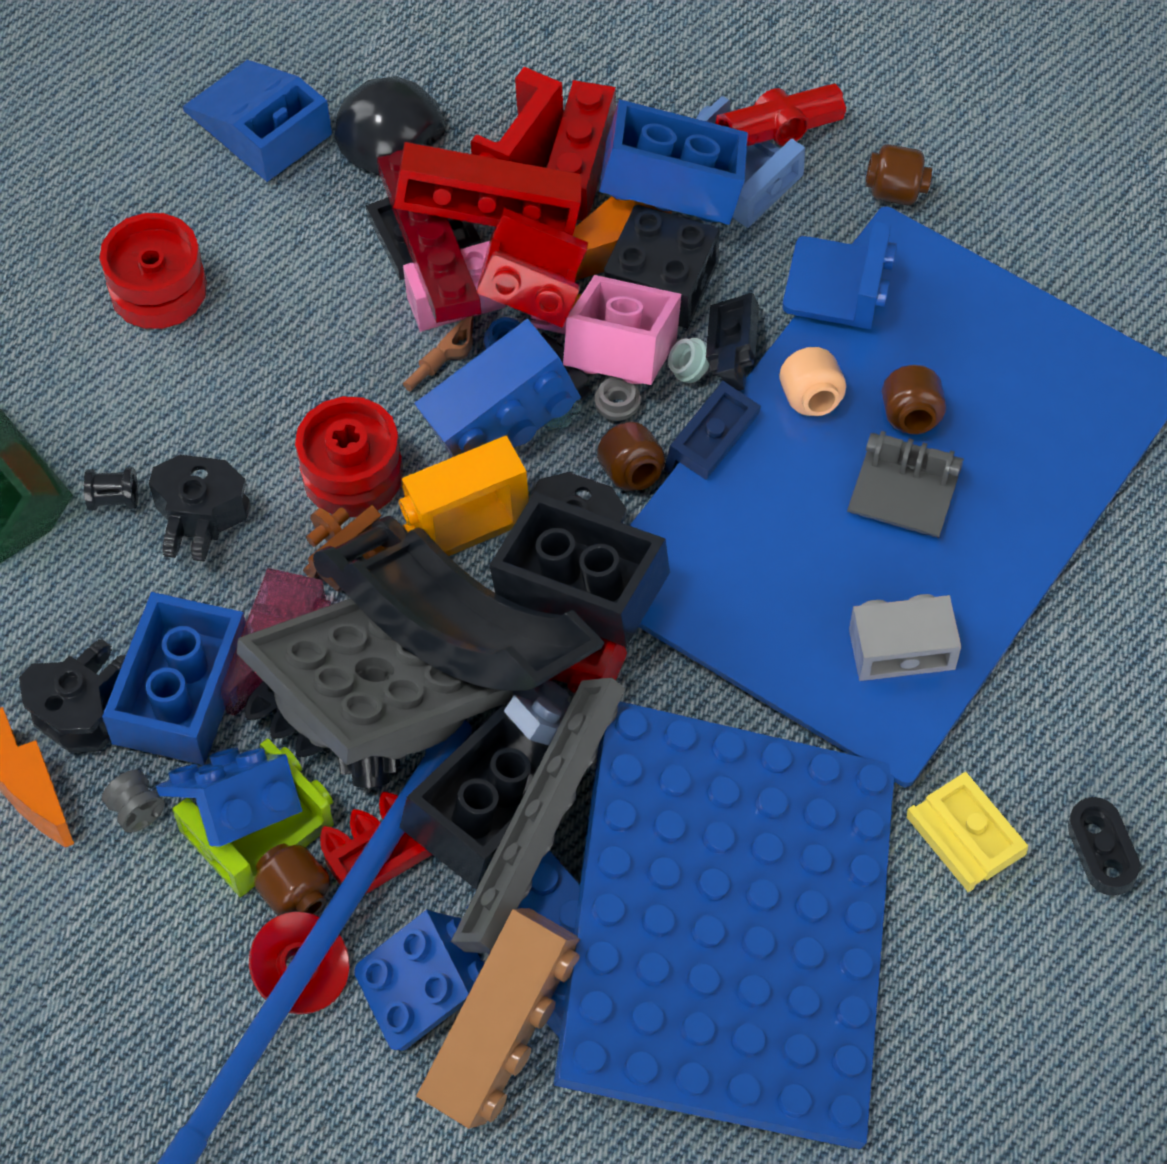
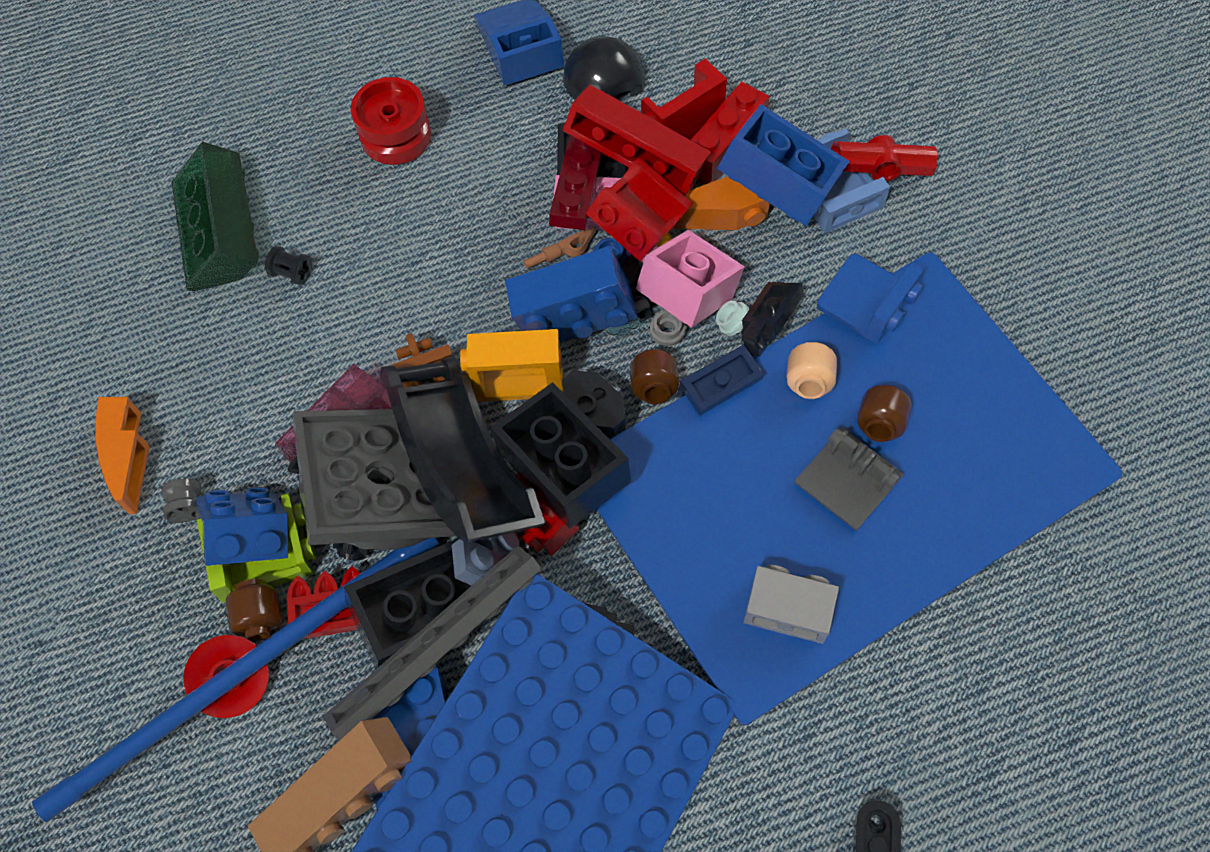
camera: 25 degrees right, 5 degrees up
(71, 698) = (183, 408): black hinge -> none
(172, 679) = (247, 420): blue brick -> none
(195, 504) = (334, 298): black hinge -> none
(349, 455) = (453, 300): red wheel -> none
(417, 978) = (296, 727): blue bracket -> none
(666, 255) = (750, 235): black bracket -> none
(898, 174) = (953, 231): reddish brown head -> none
(967, 831) = (771, 786): light yellow plate -> none

